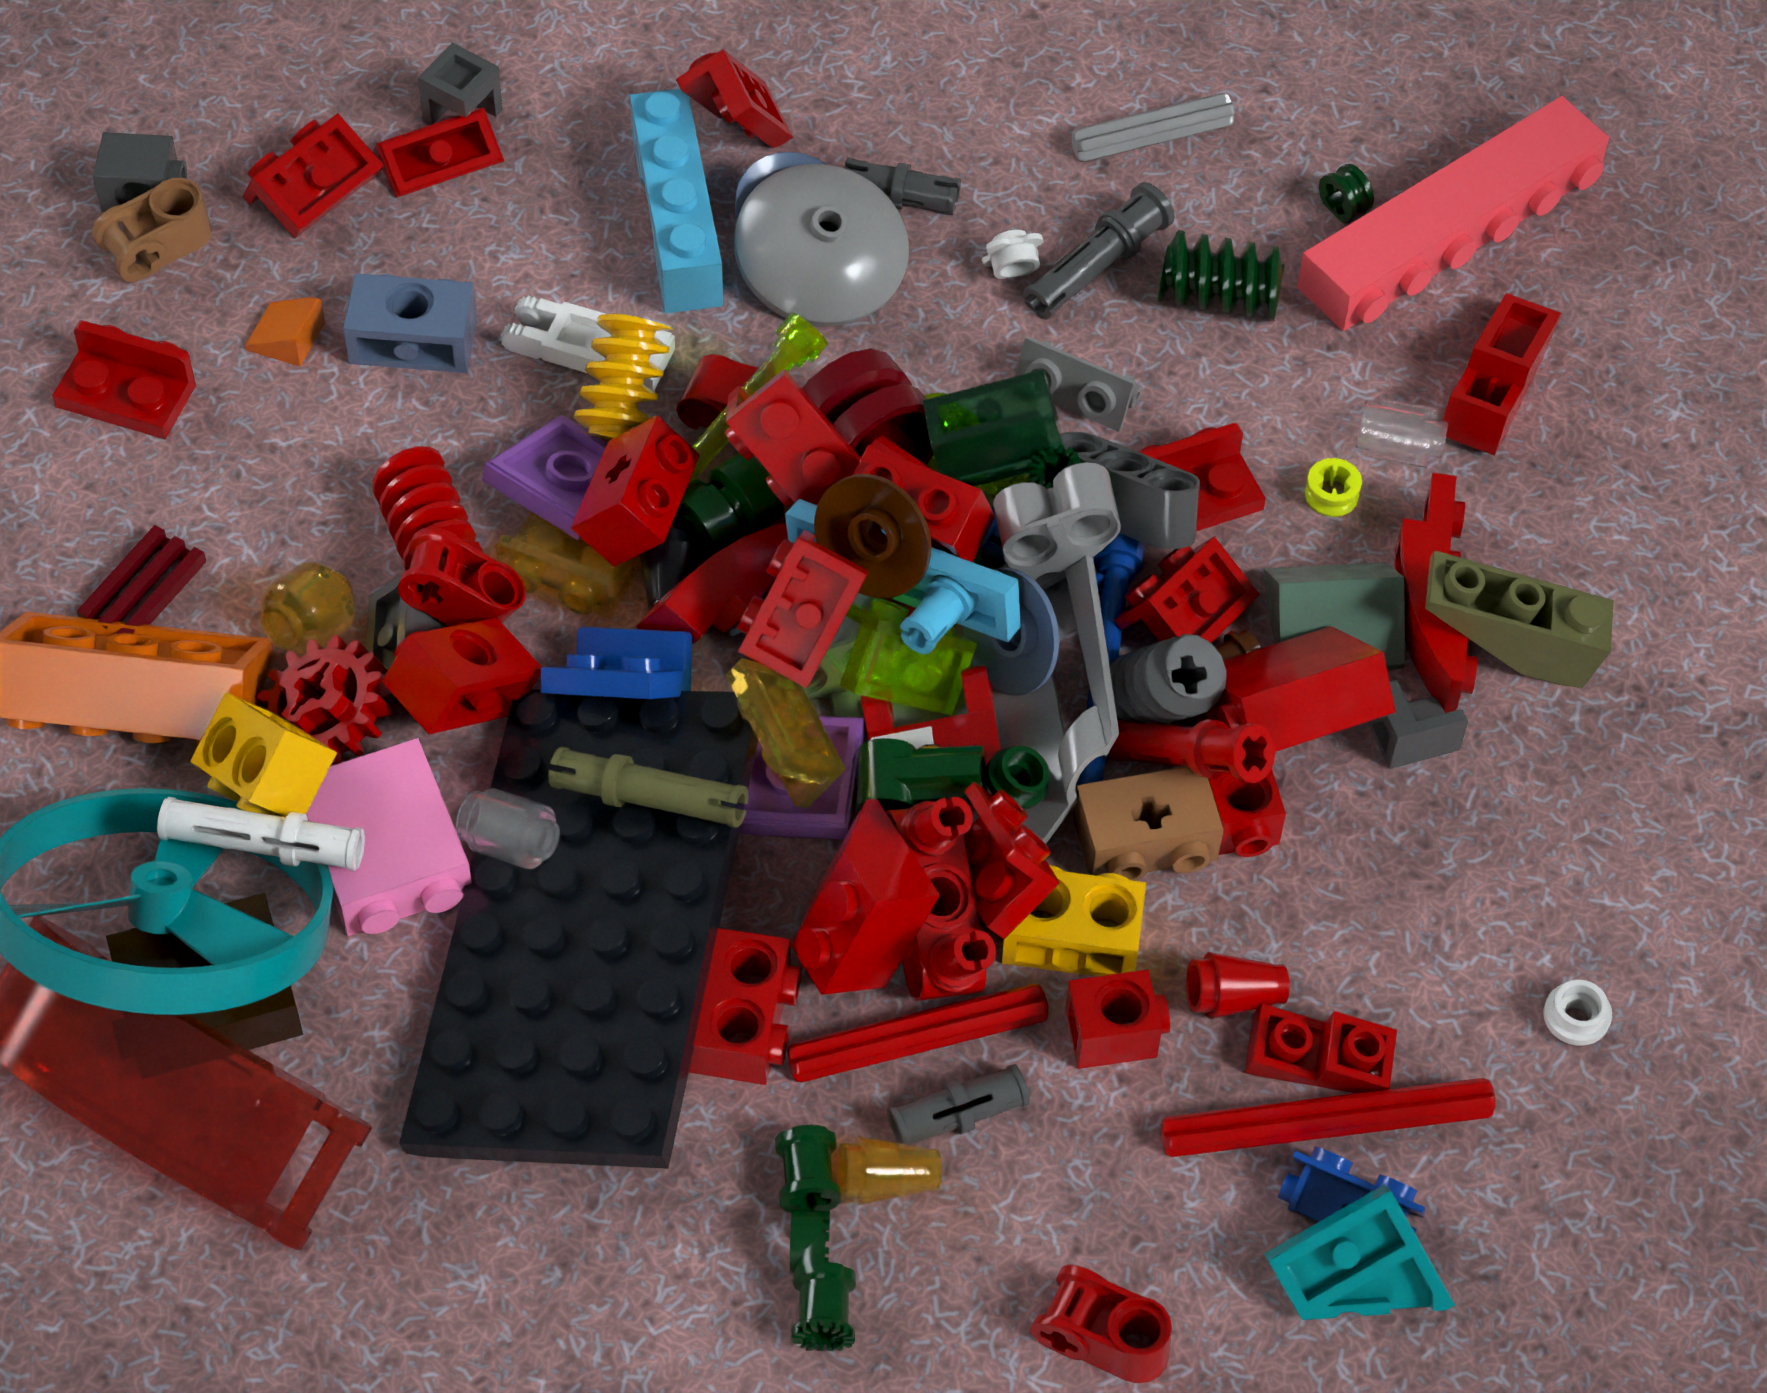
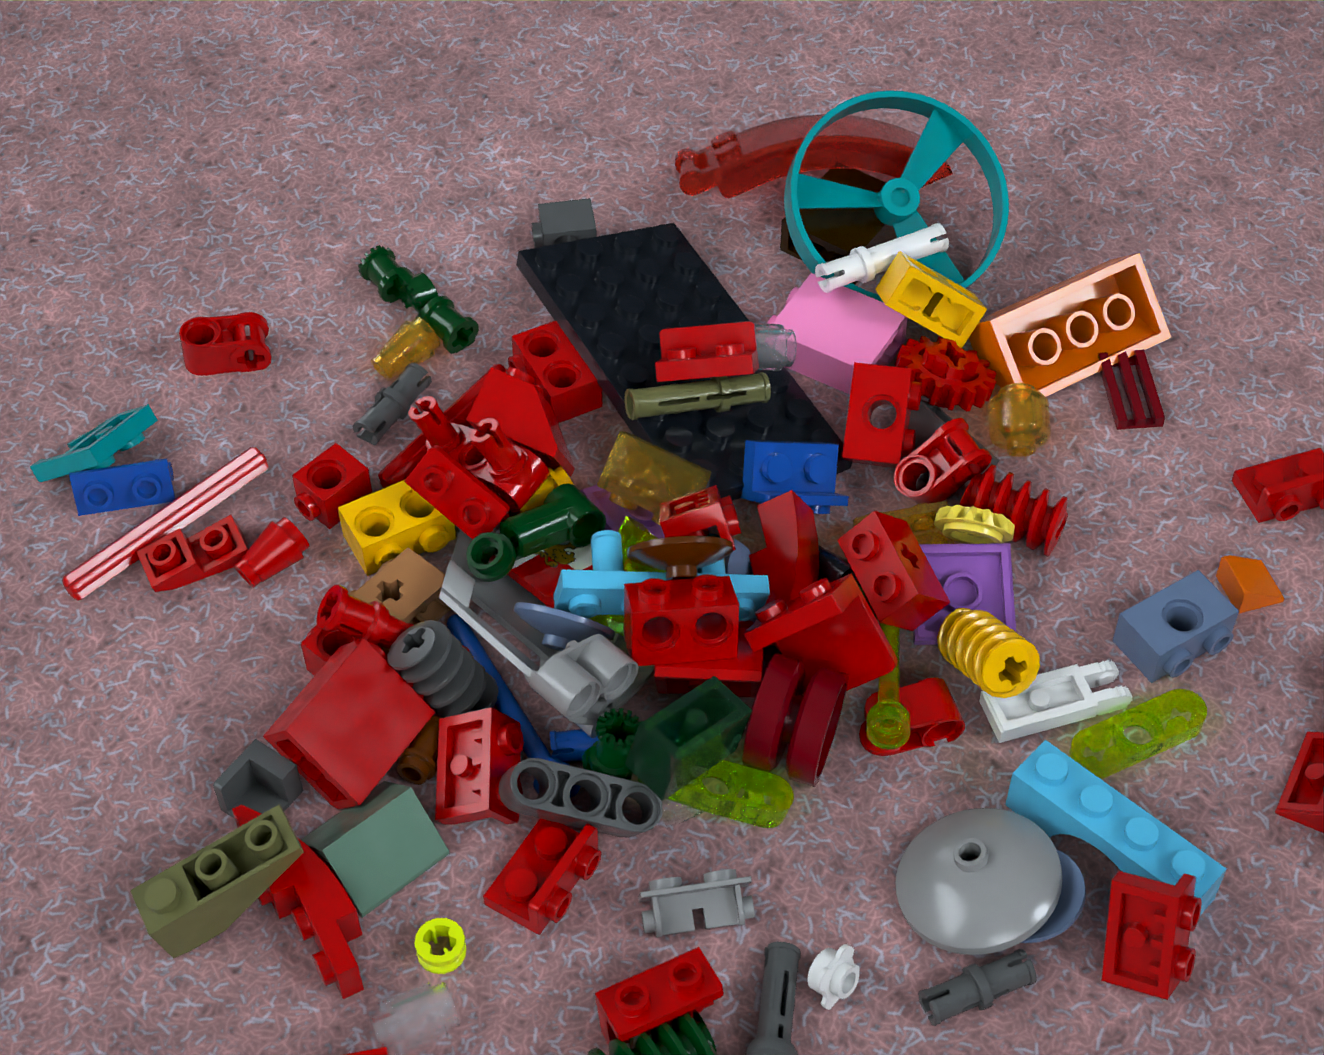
camera: 145 degrees right, 5 degrees down
(502, 477) = (974, 525): none -> light yellow gear
(536, 258) = (1147, 716): none -> clear neon green beam
(547, 1212) = (564, 222): none -> dark grey brick
(609, 795) = (707, 351): none -> red bracket
(1186, 300) = (657, 996): none -> red bracket
(1579, 995) = (36, 658): white plate -> none

